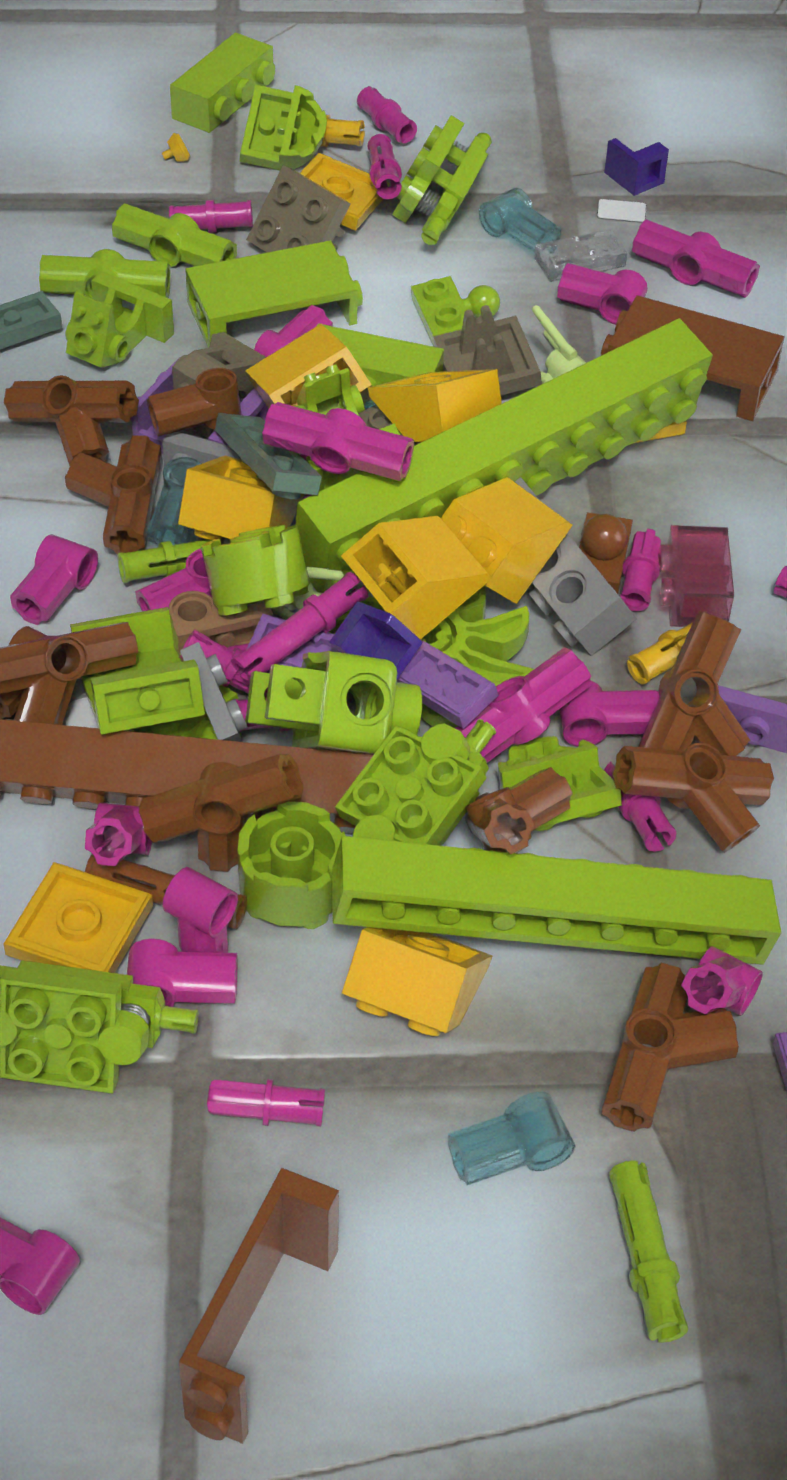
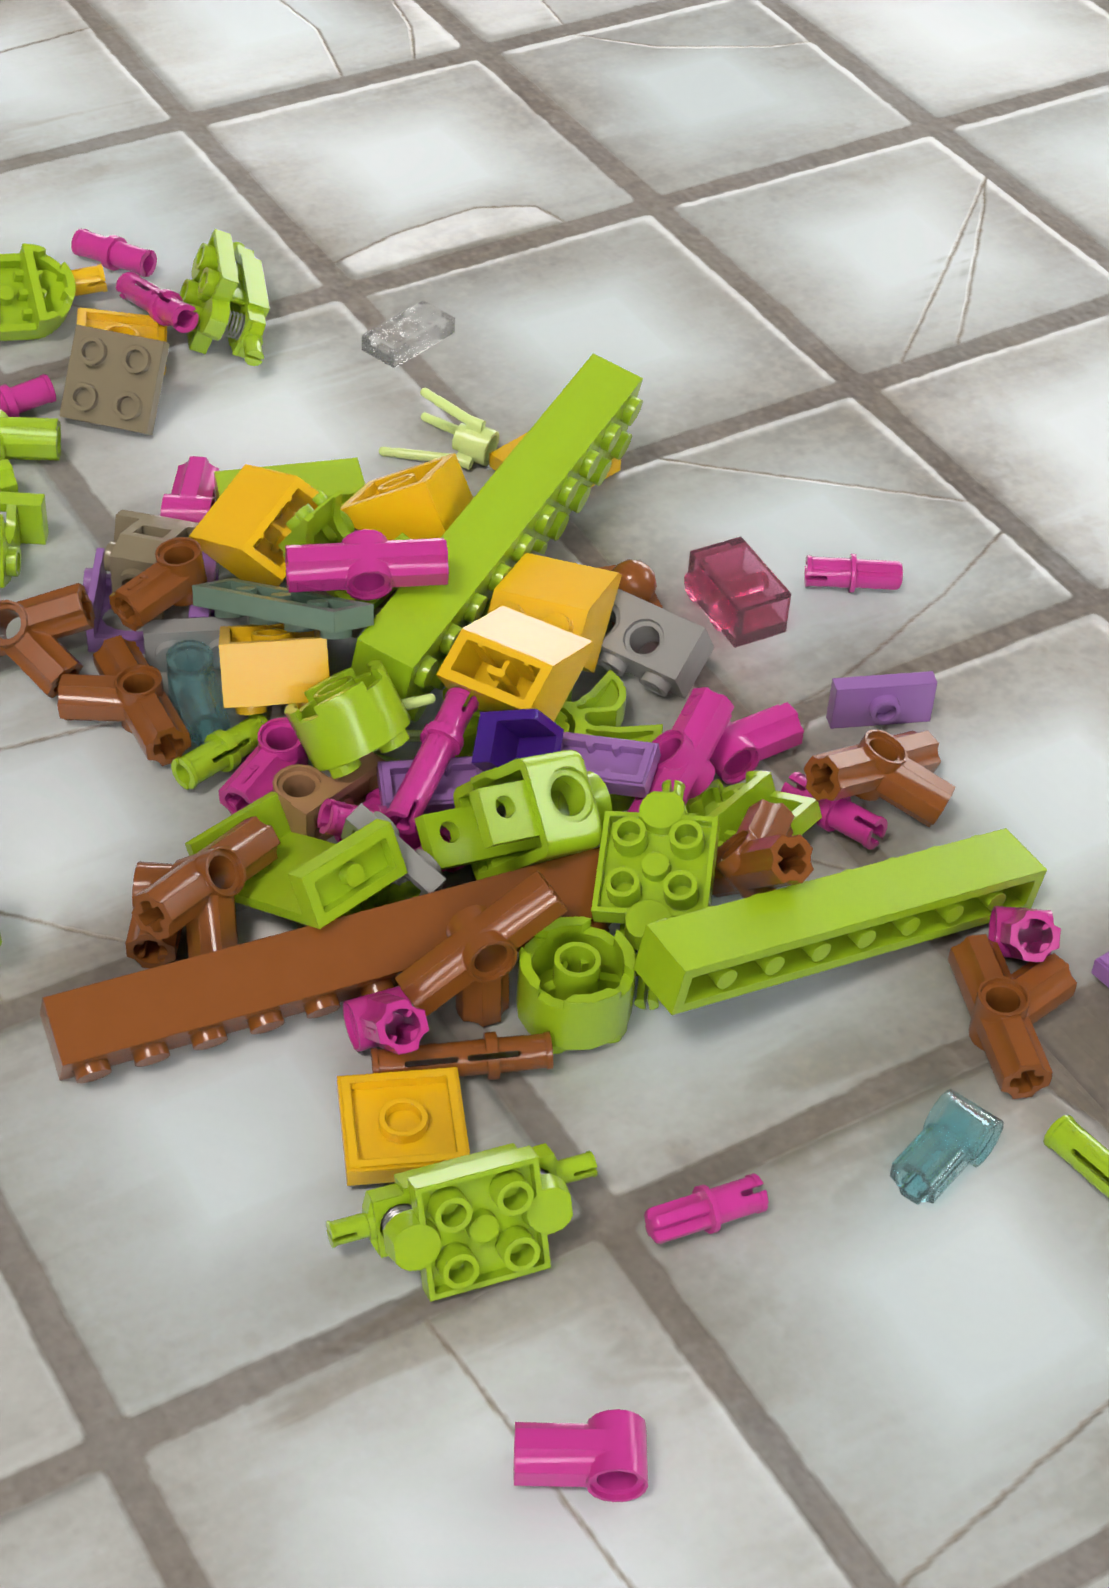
camera: 30 degrees left, 5 degrees down
(57, 570) = (119, 802): dark pink piece -> none
(184, 975) = (559, 1122): dark pink piece -> none
(201, 911) = (534, 1063): dark pink piece -> none
(270, 285) = (125, 452): lime panel -> none
(293, 1220) = (865, 1475): dark orange panel -> none
(415, 977) = (759, 1041): yellow slope -> none
(443, 308) = (318, 429): lime plate -> none
(491, 345) = (393, 443): dark tan plate -> none
(514, 215) = (318, 315): clear light blue piece -> none
(601, 290) = (457, 361): dark pink piece -> none
(621, 210) = (408, 282): white sticker -> none
(638, 169) = (398, 239): dark purple panel -> none
(641, 570) = (678, 596): dark pink axle -> none
(657, 657) = (753, 680): yellow pin -> none
(695, 258) = (495, 304): dark pink piece -> none
(707, 715) = (827, 689): dark orange piece -> none
(741, 354) = (535, 379): dark orange panel -> none

